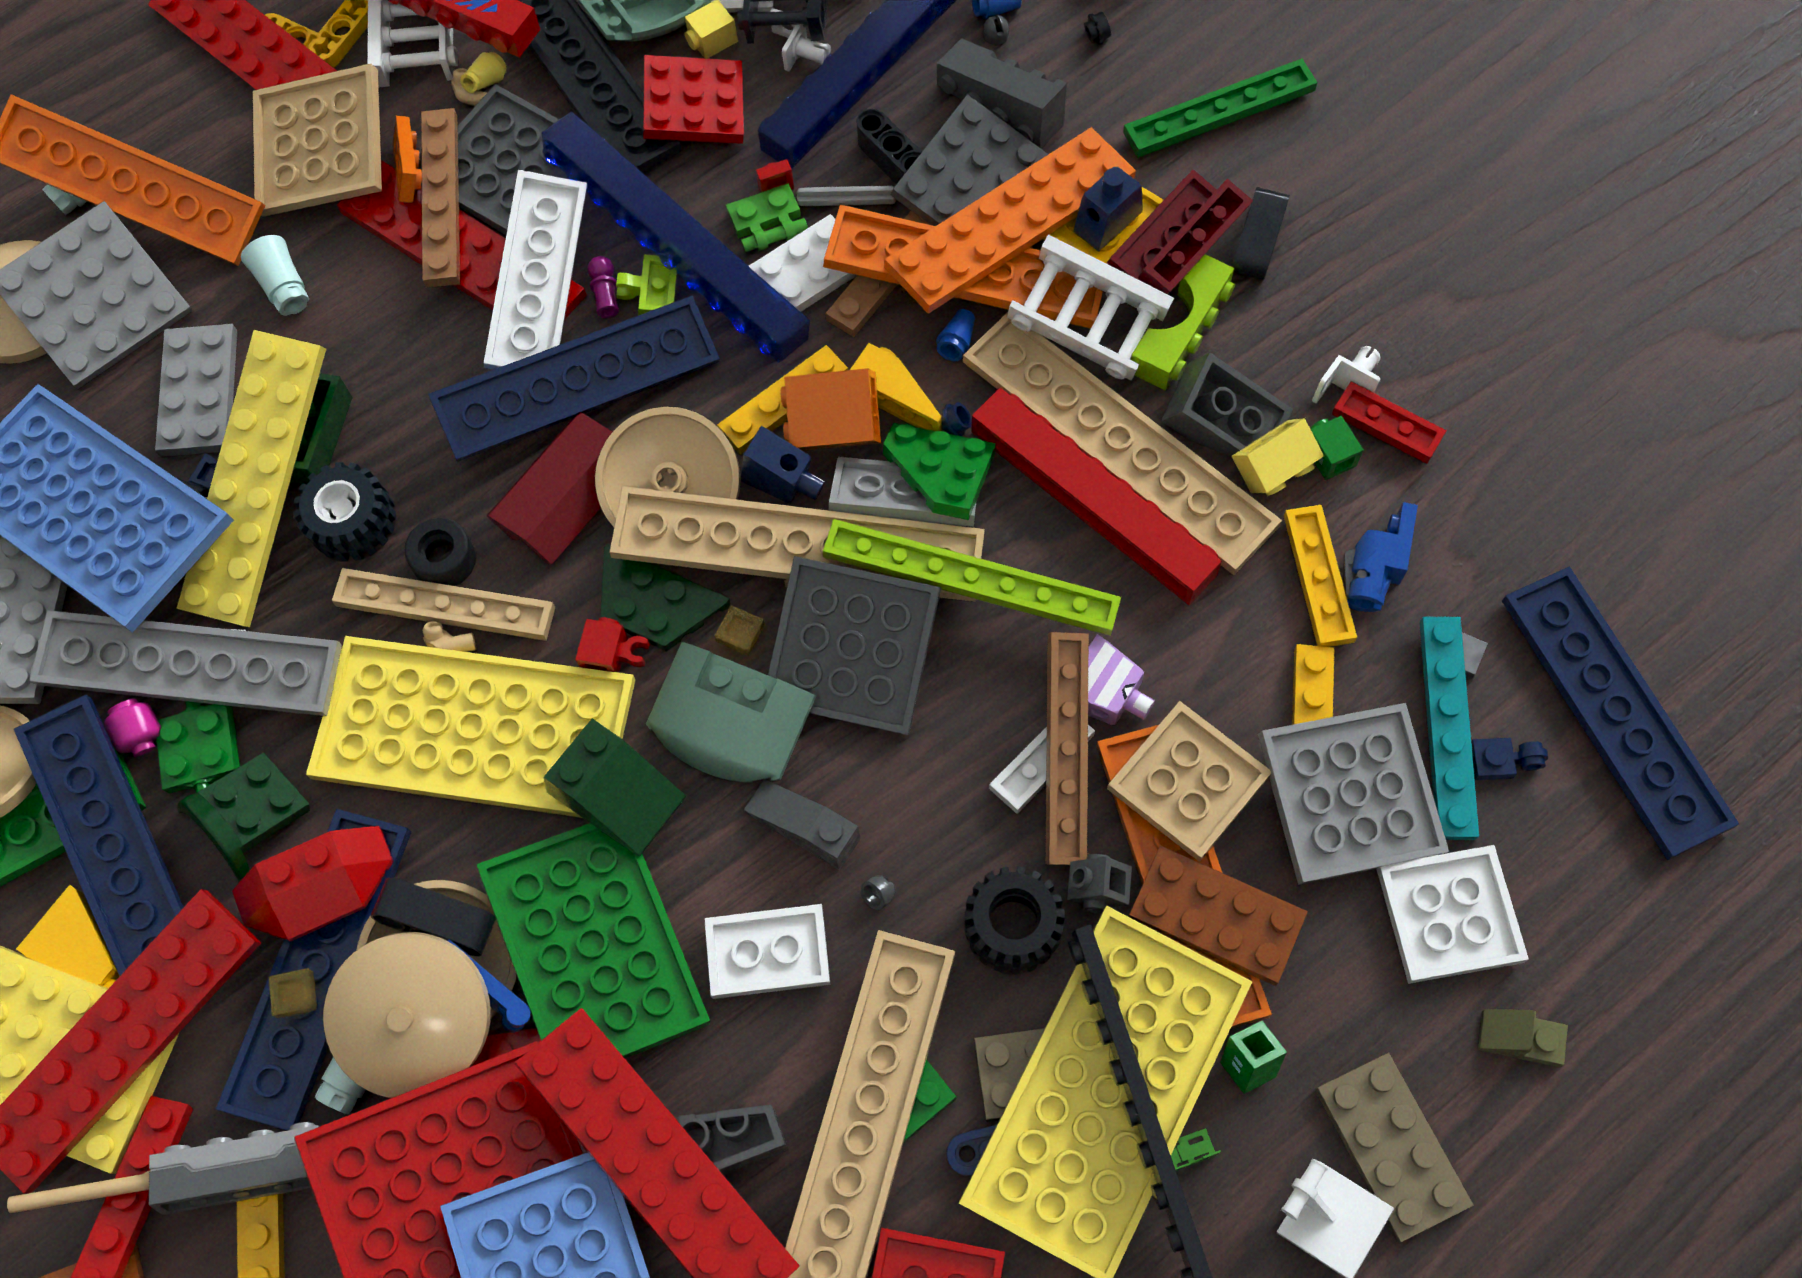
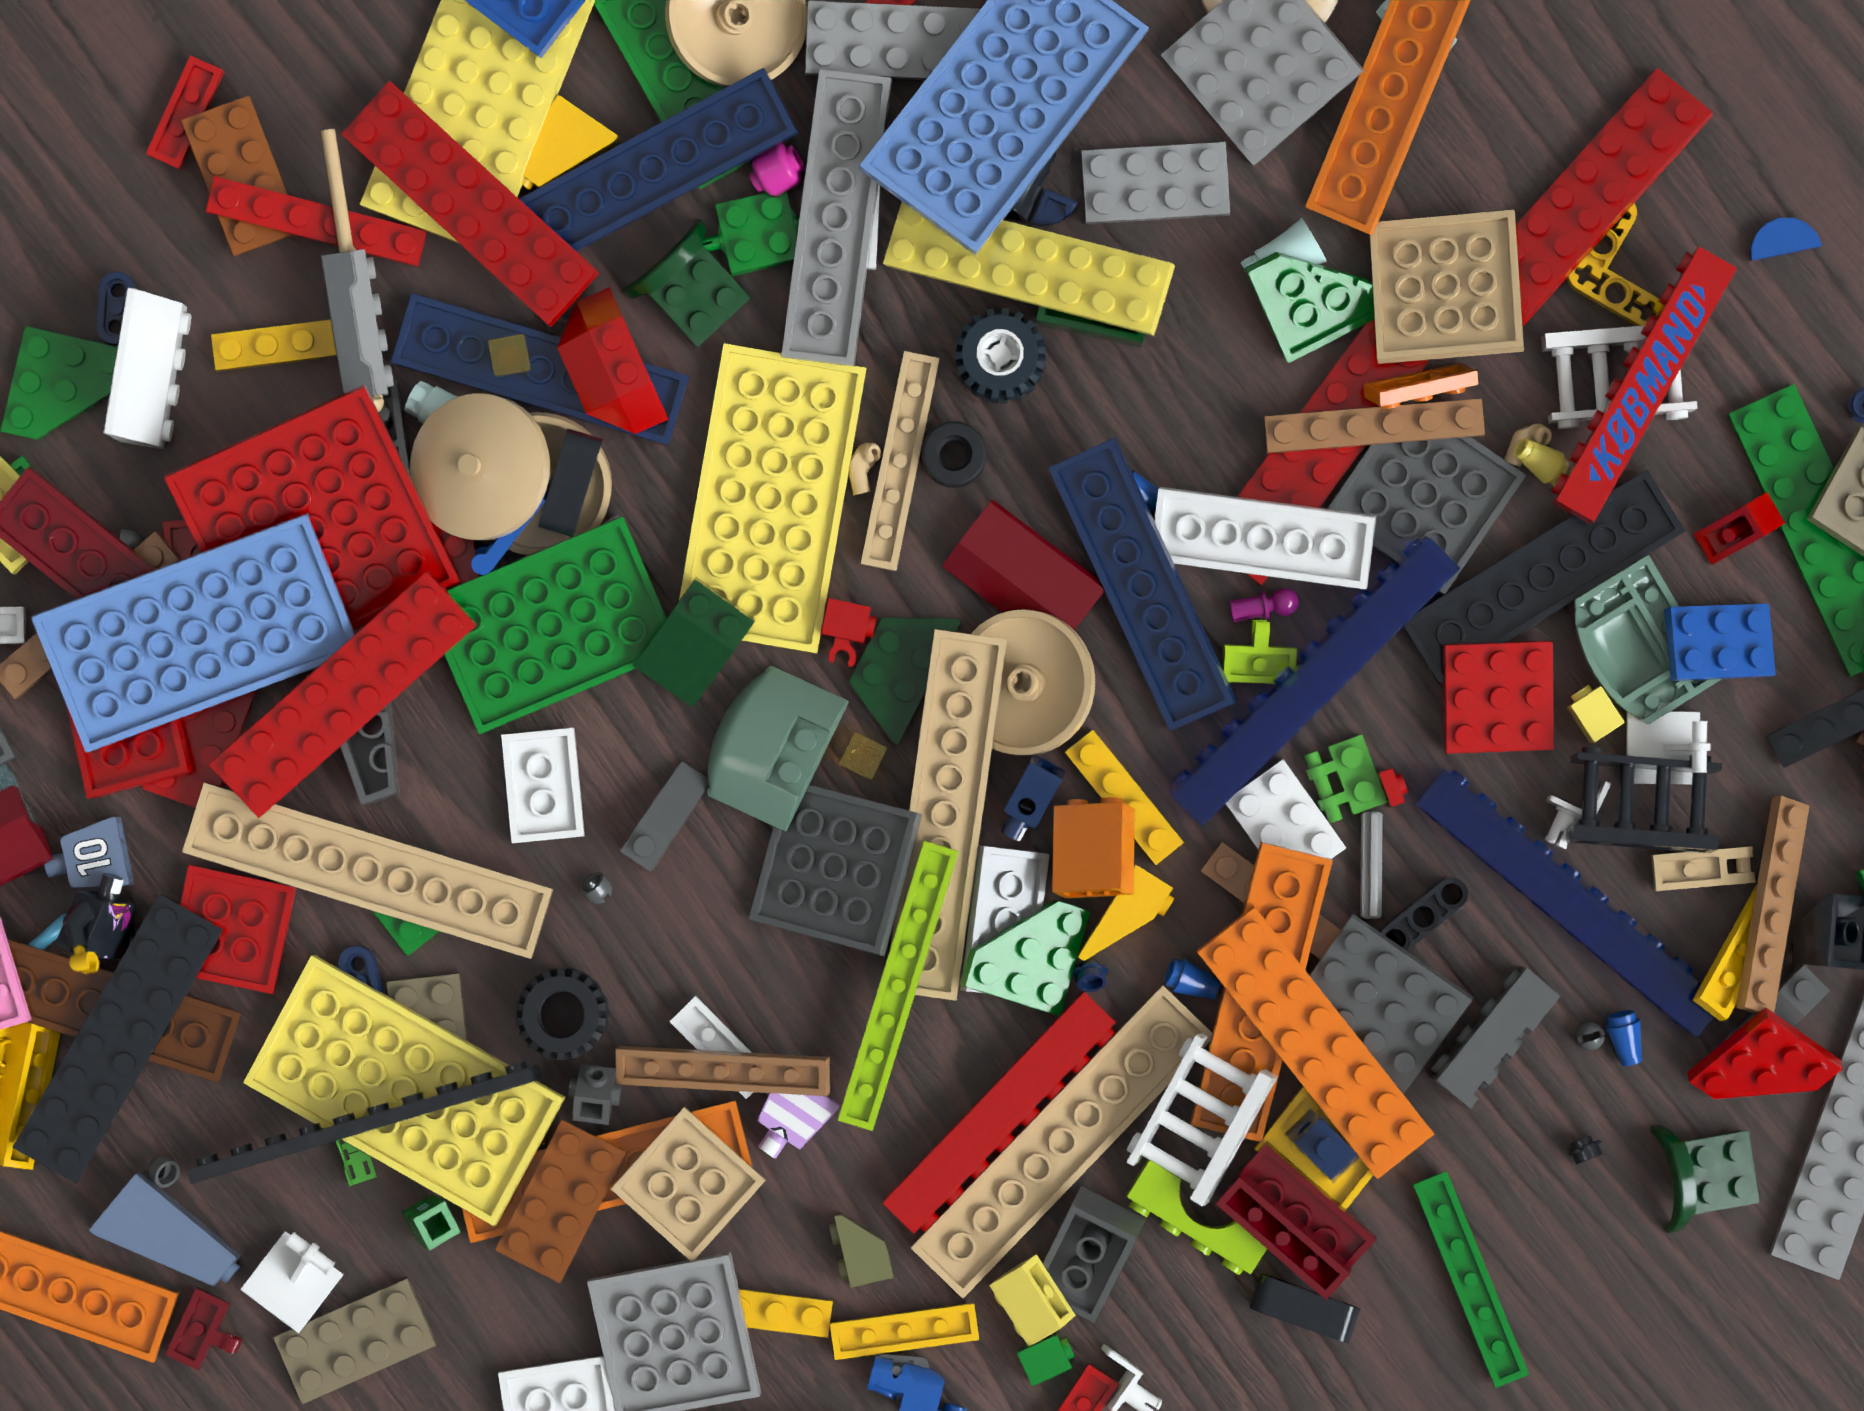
camera: 85 degrees right, 20 degrees up
(320, 251) = (1309, 302): none -> plate
(1245, 615) = (864, 1252): none -> olive slope

